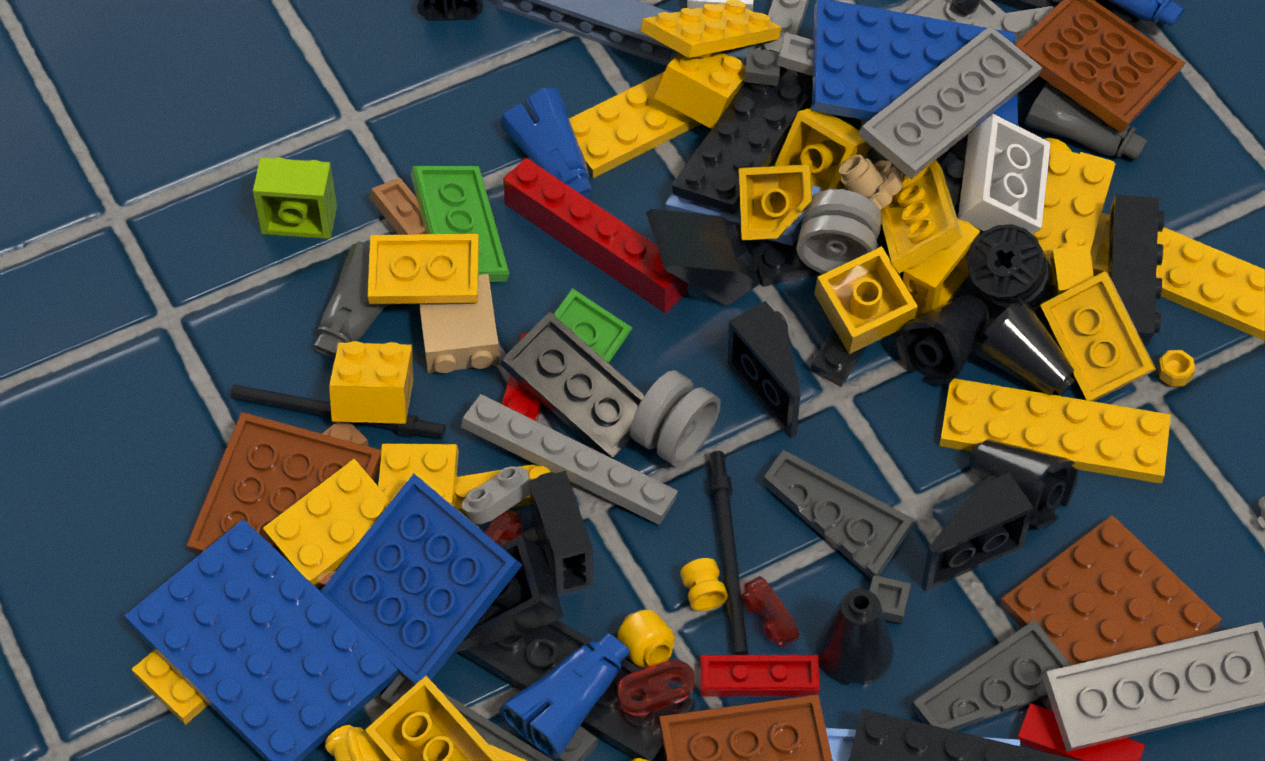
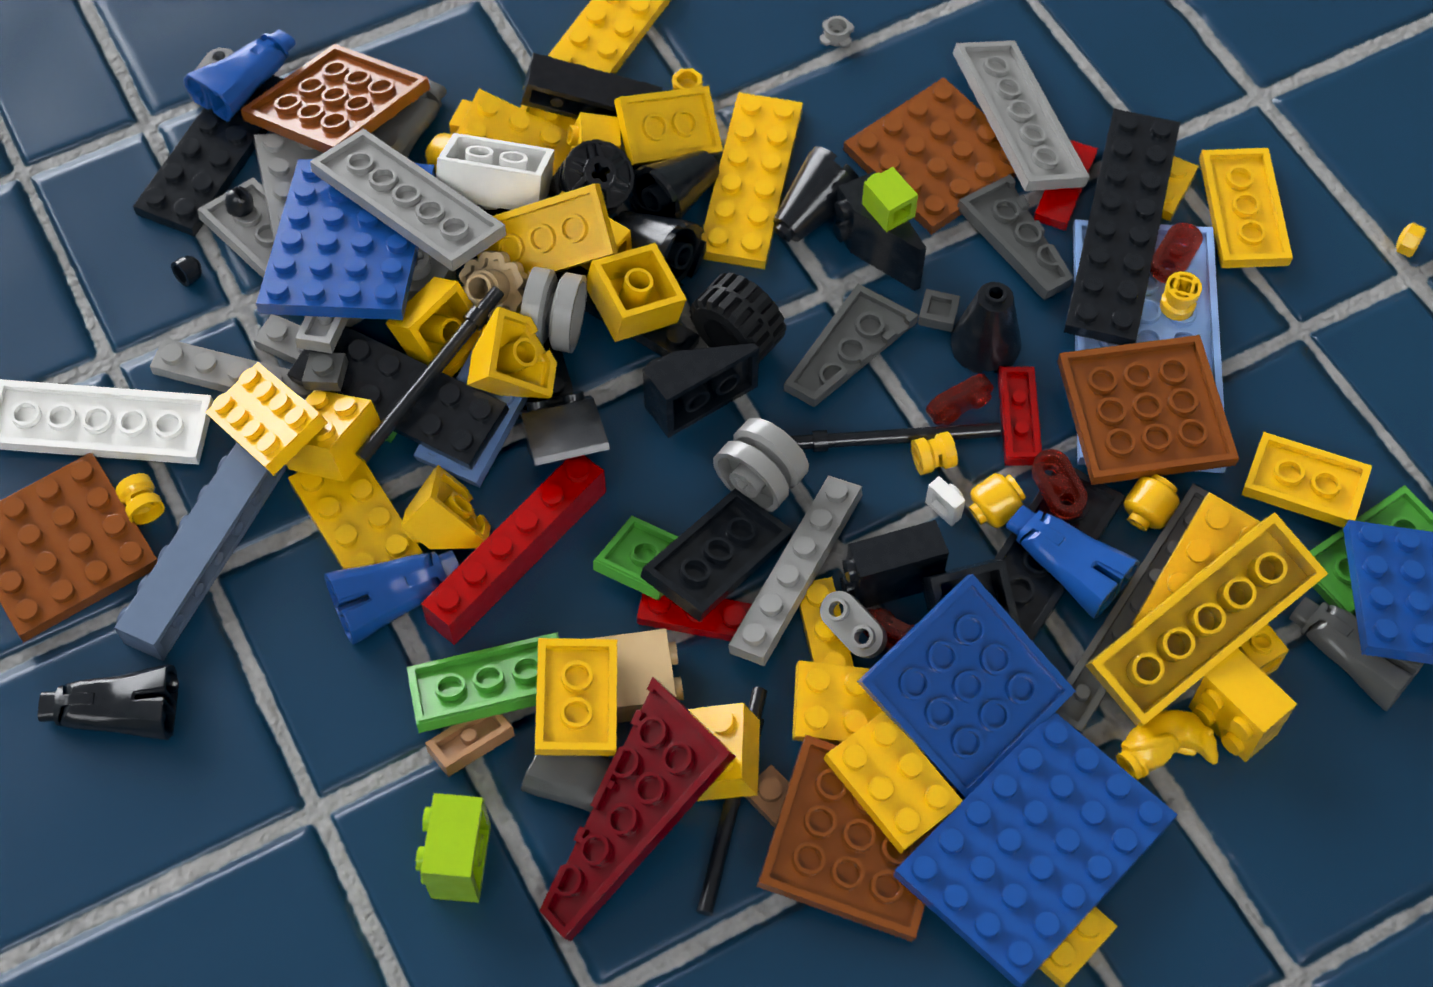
camera: 90 degrees left, 5 degrees up
(328, 324) = (642, 797): none -> dark red wing
(630, 182) = (443, 515): none -> yellow slope
(646, 591) = (945, 500): none -> white plate
(819, 165) = (475, 320): none -> black bar
(844, 396) = (737, 313): none -> black tyre
(983, 507) = (889, 199): none -> lime brick

